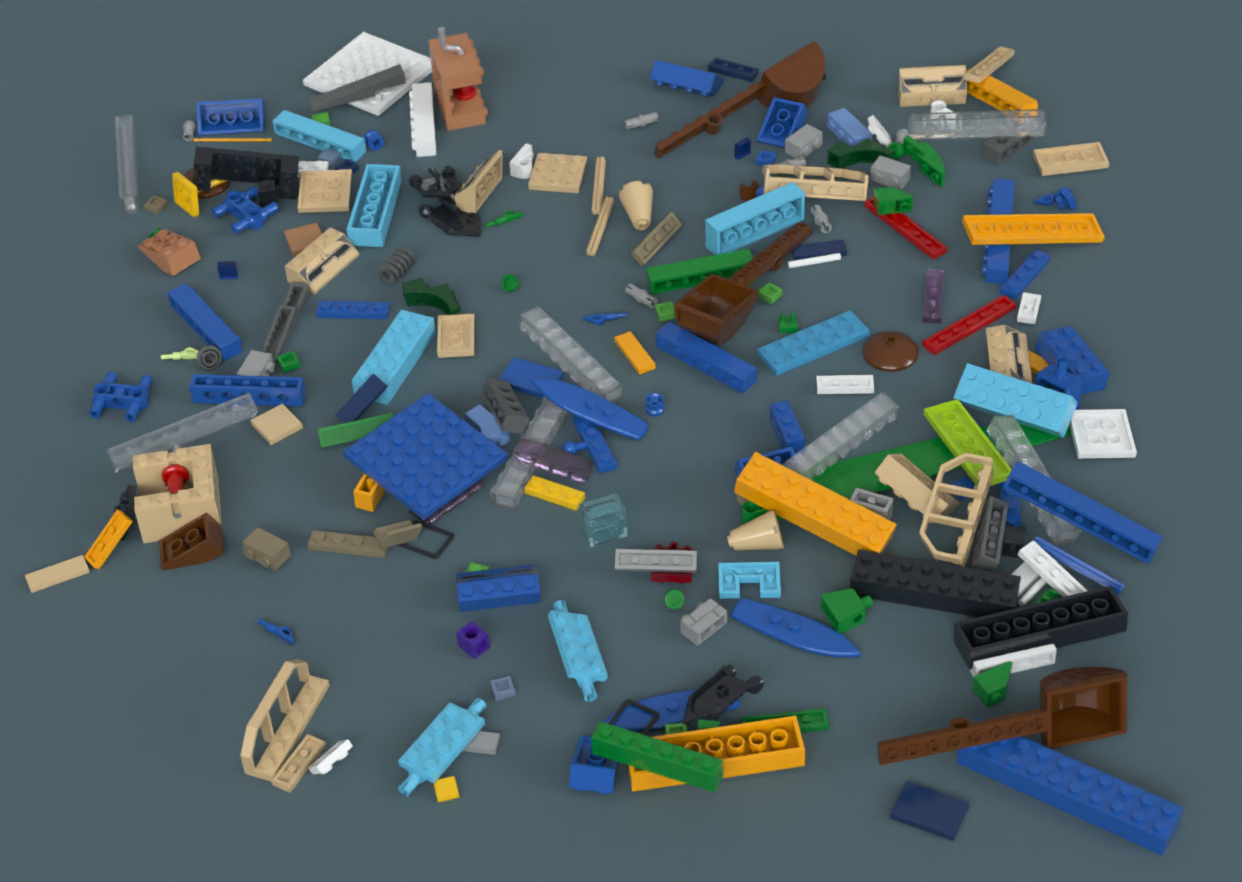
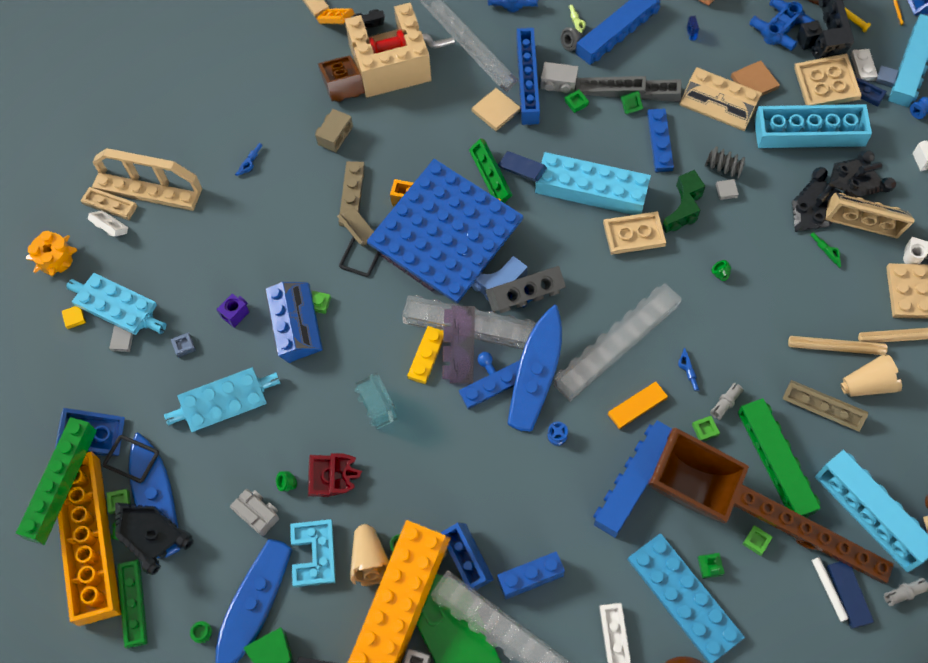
camera: 85 degrees right, 20 degrees up
(304, 321) = (631, 102): none -> green plate
(358, 808) = (51, 253): none -> light orange brick
(423, 271) = (727, 189): none -> light grey tile
(520, 373) = (585, 310): blue tile -> none
(655, 560) = (321, 456): light grey plate -> none
(818, 666) = (201, 632): none -> green plate

